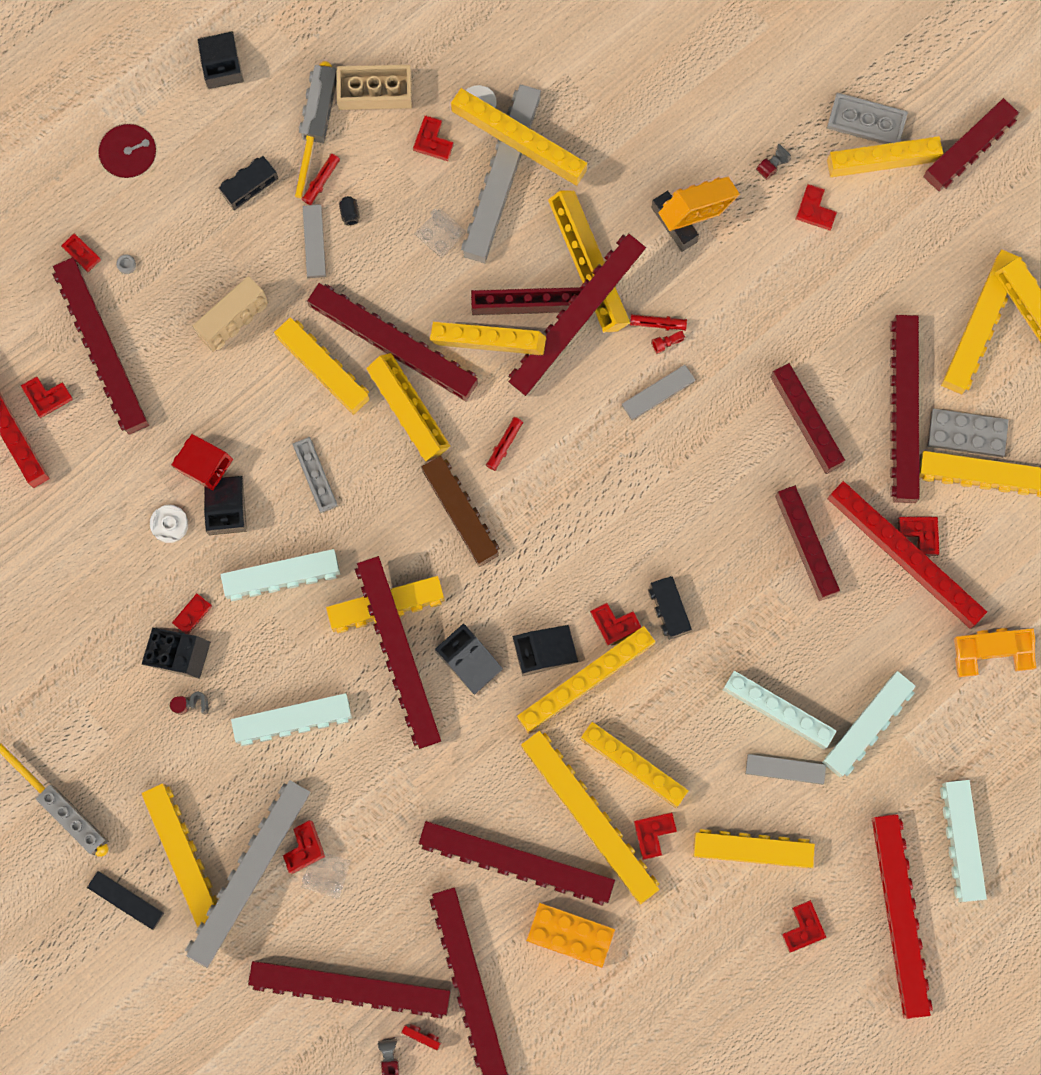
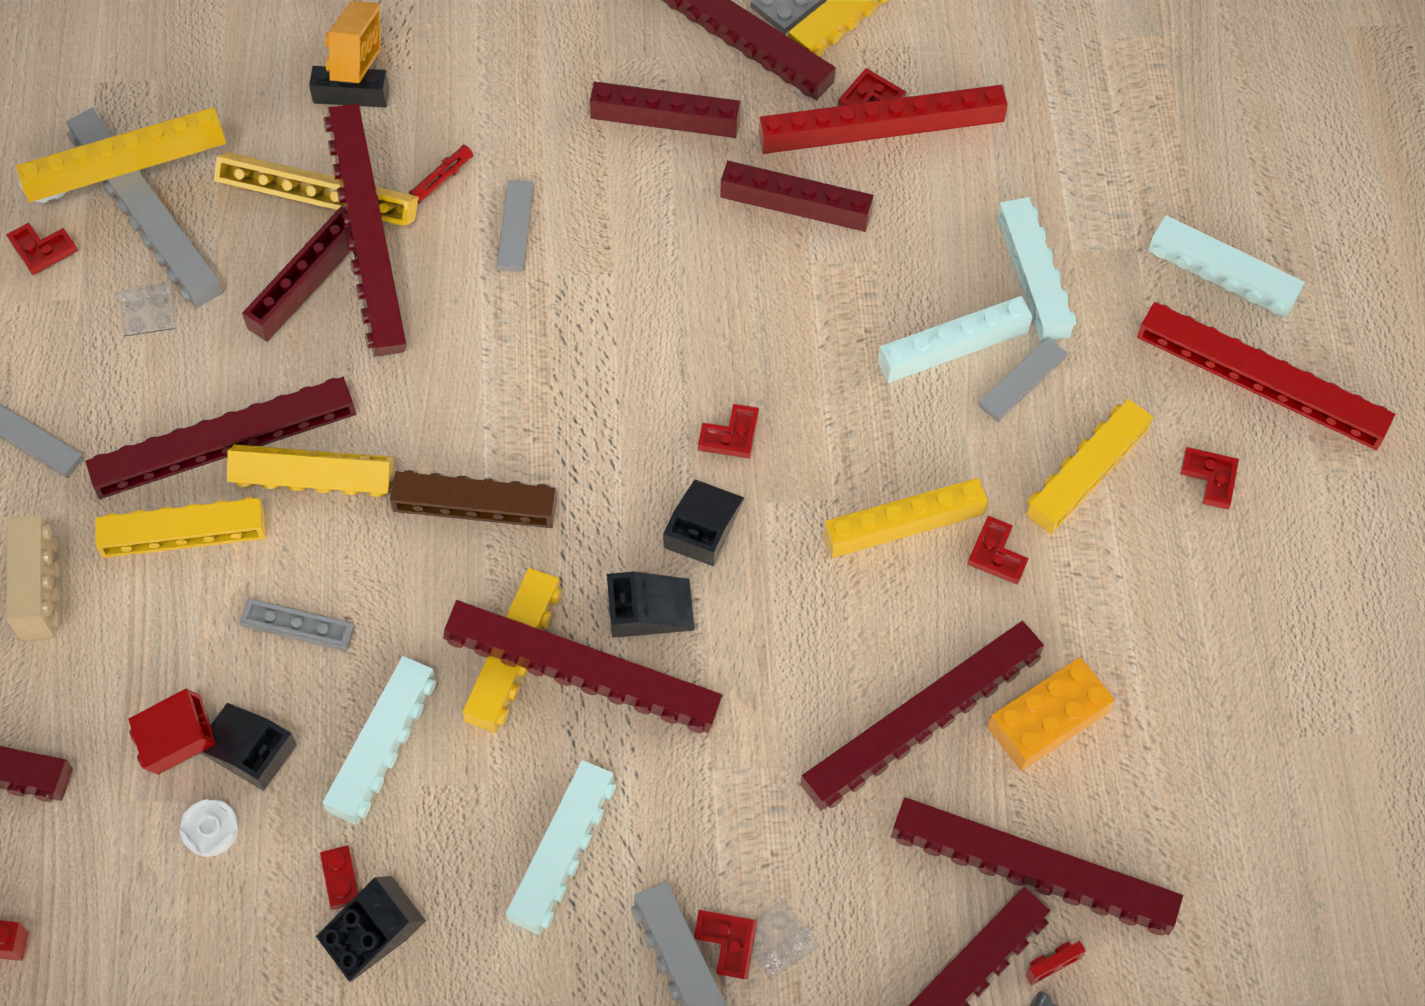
camera: 55 degrees left, 15 degrees down
(180, 704) = (437, 964): leg -> none
(349, 211) = (35, 379): black brick -> none
(488, 338) = (309, 332): yellow brick -> none
(501, 449) = (448, 428): red pin -> none
(586, 679) = (771, 503): yellow brick -> none
(590, 818) = (930, 602): yellow brick -> none
(659, 344) = (466, 185): red piece -> none
(669, 608) = (759, 367): black brick -> none
(995, 645) = (1040, 105): light orange bracket -> none

